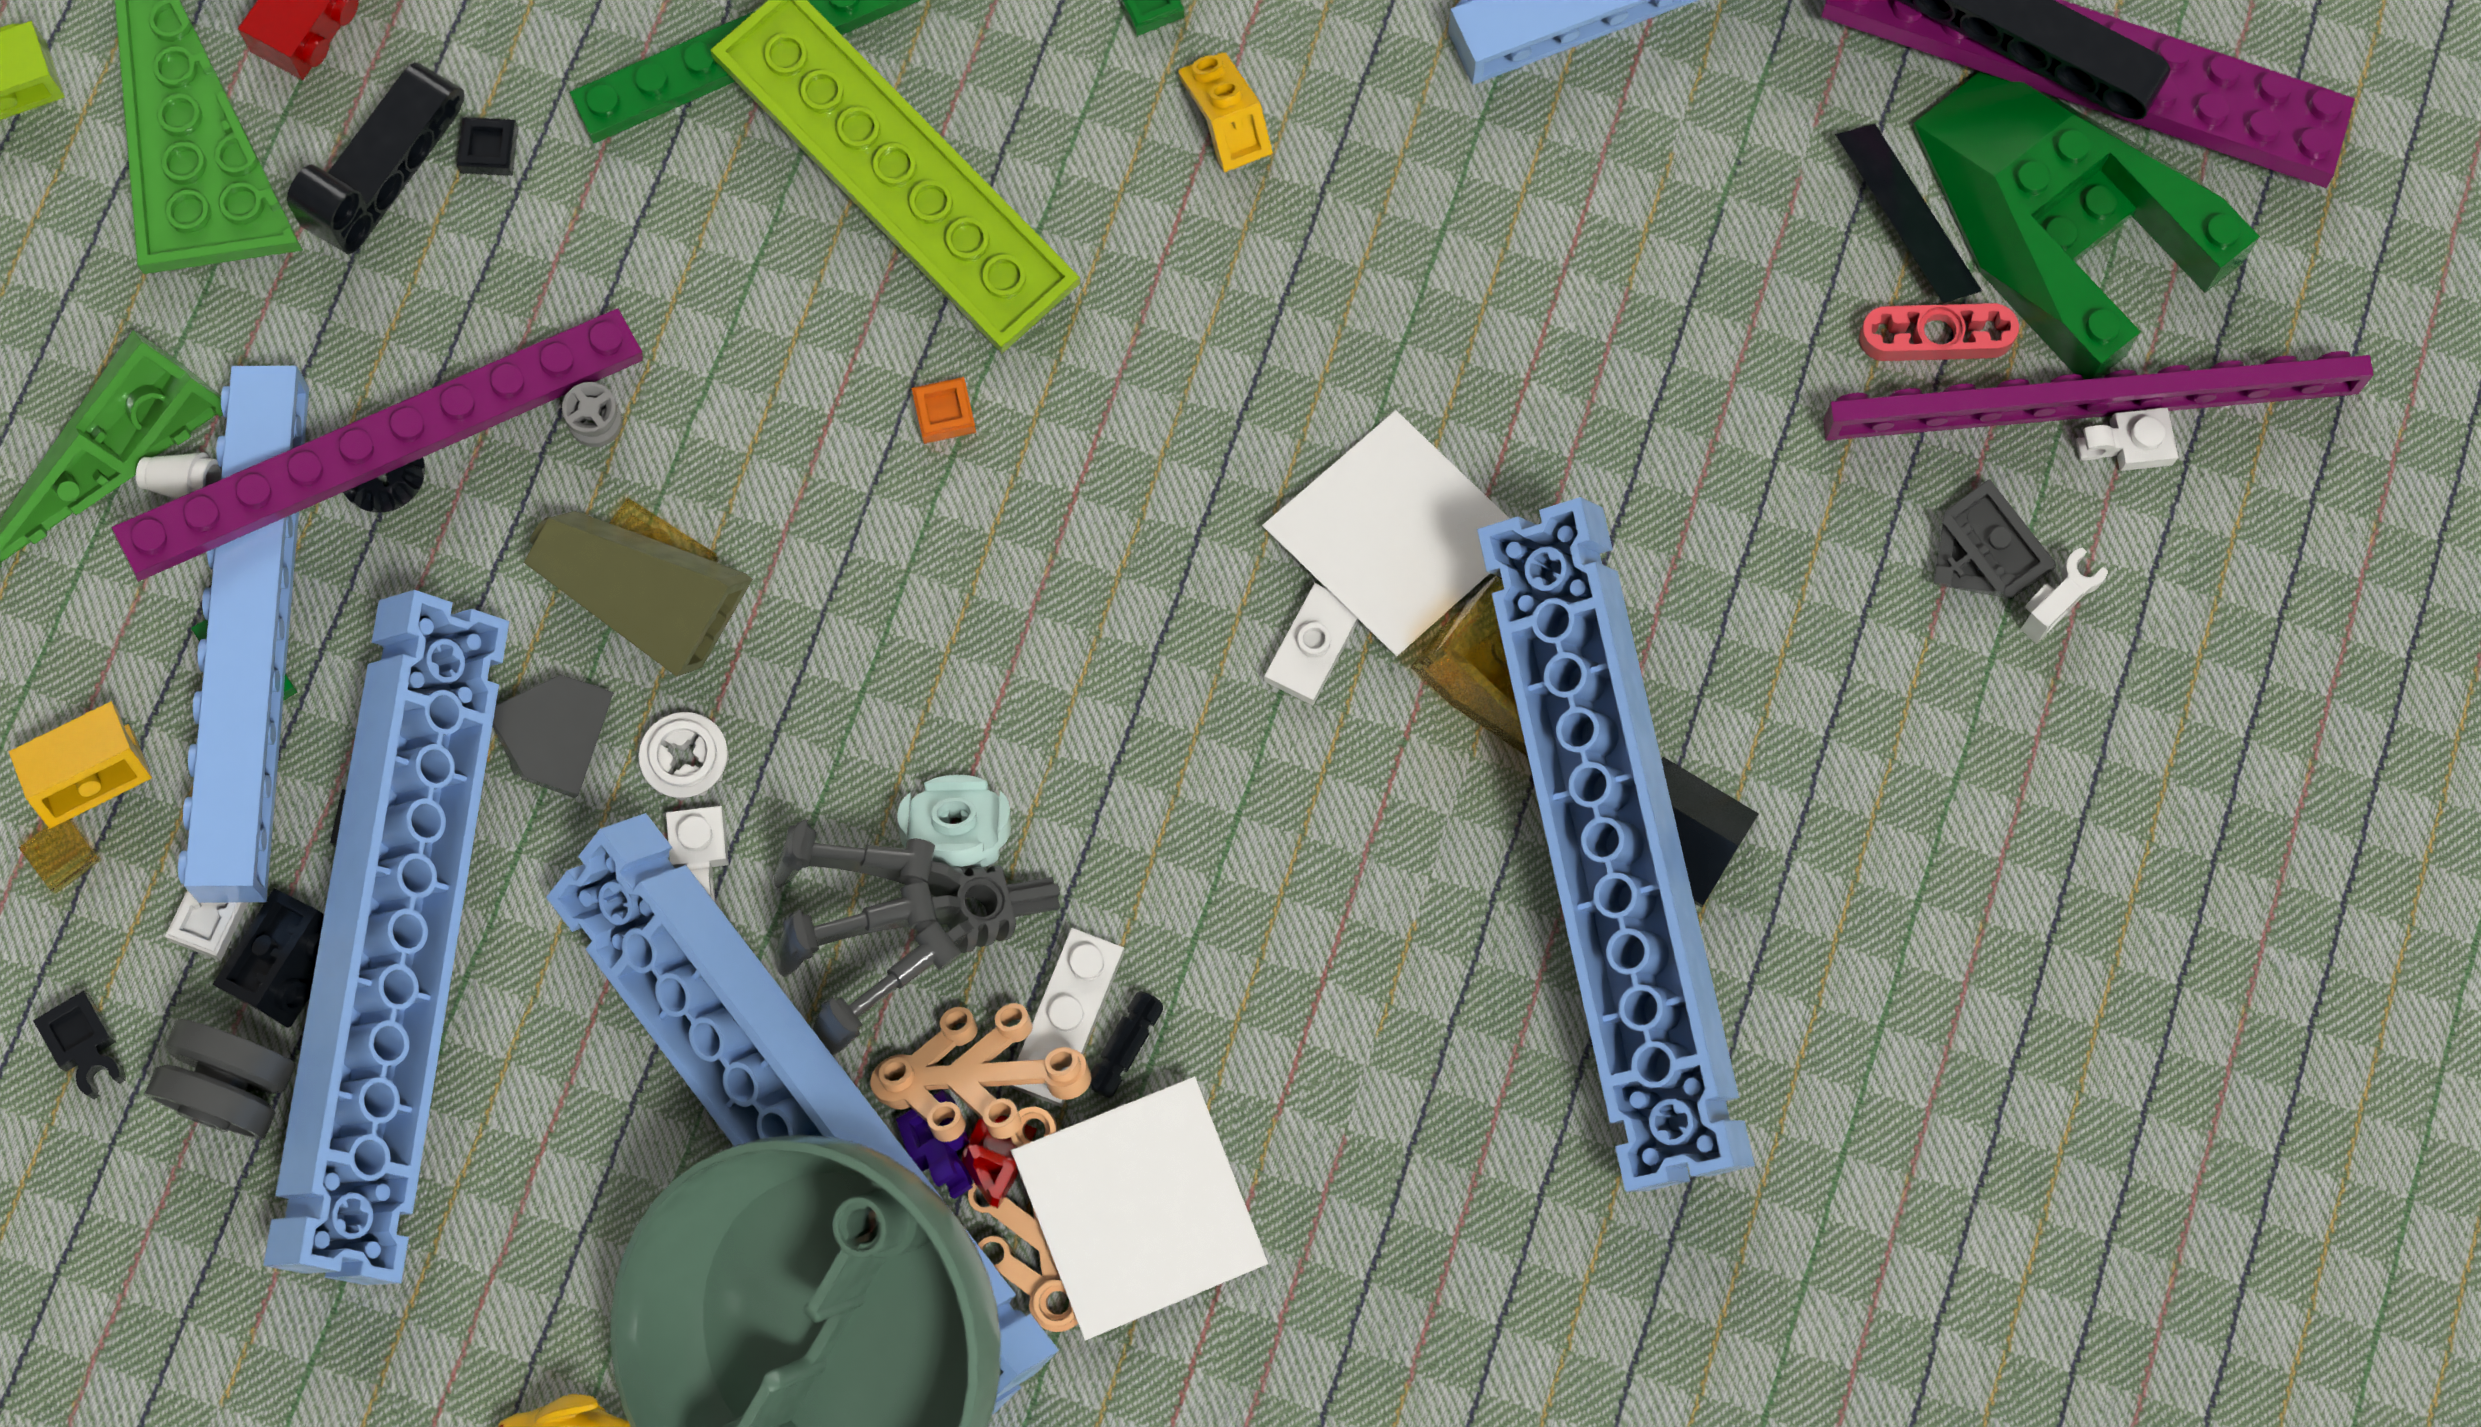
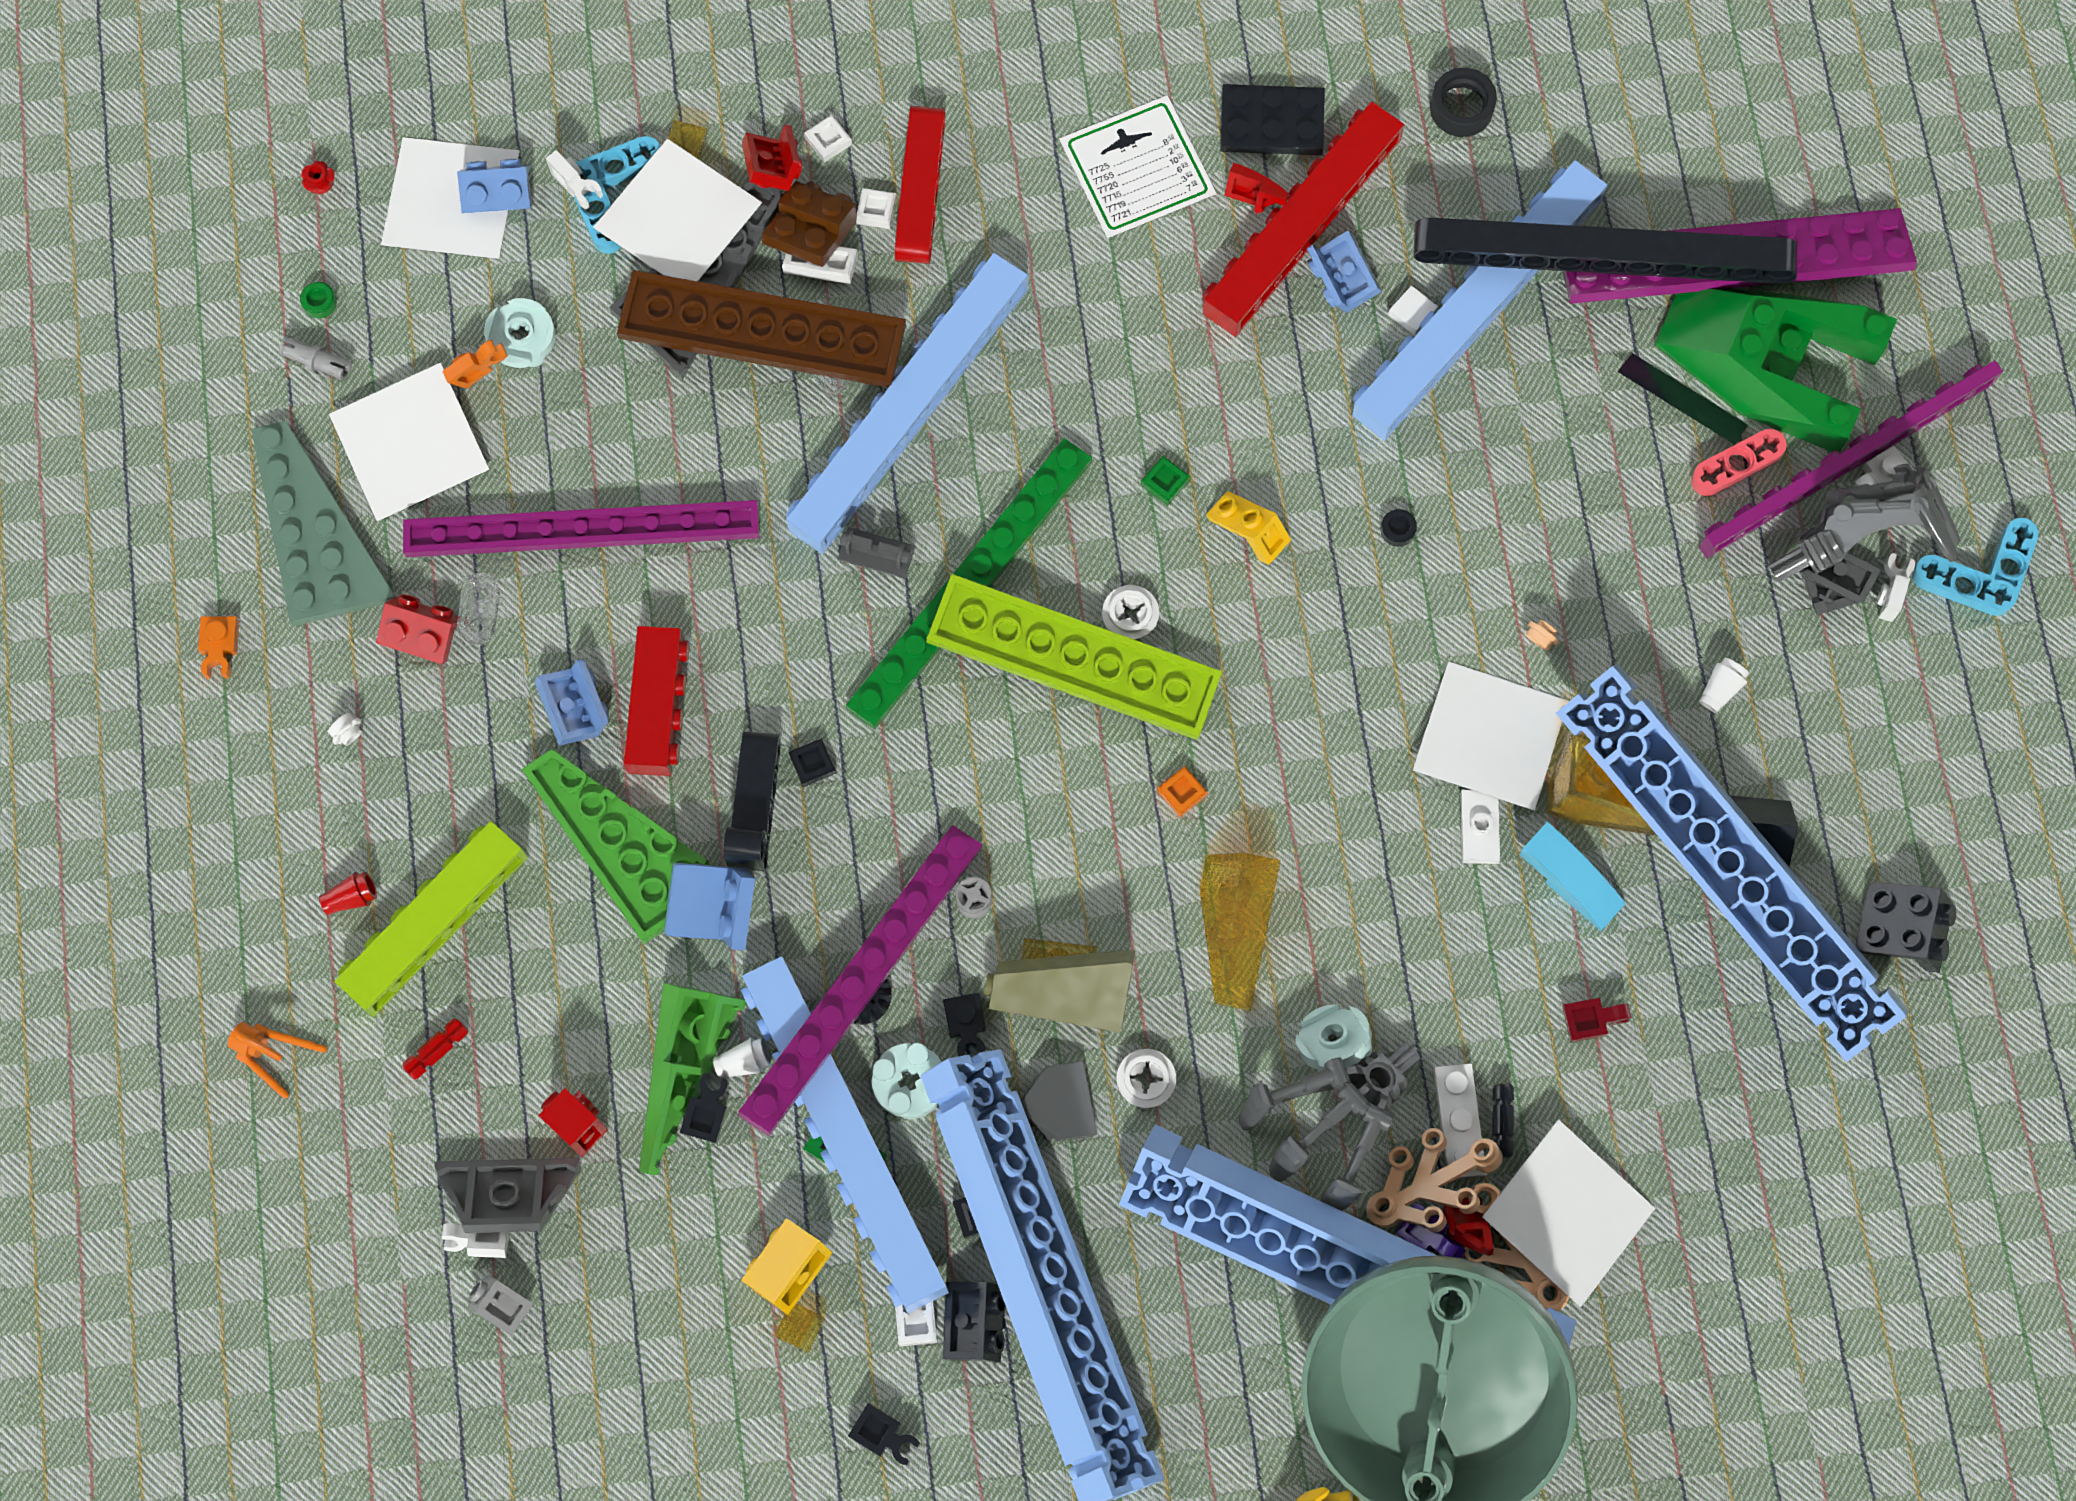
camera: 25 degrees left, 0 degrees up
(87, 520) = (704, 1115): none -> black plate
(217, 1086) = (988, 1418): dark grey wheel -> none
(241, 253) = (710, 903): none -> medium blue bracket
(355, 586) = (888, 1072): none -> light aqua plate
(493, 566) = (965, 1019): none -> black plate
(698, 842) = (1185, 1122): white plate -> none
(924, 602) = (1236, 912): none -> clear yellow wedge
(1022, 130) = (1133, 597): none -> white gear
(1315, 965) = (1589, 1020): none -> dark red plate
(1398, 767) = (1572, 876): none -> medium azure slope
(1425, 204) = (1398, 527): none -> black tile
(1538, 431) = (1542, 634): none -> light nougat plate
(1750, 614) = (1723, 684): none -> white cone
(1827, 1055) = (1907, 923): none -> black bracket
(2069, 462) = (1866, 509): none -> dark grey piece
(2208, 656) = (1994, 581): none -> medium azure beam

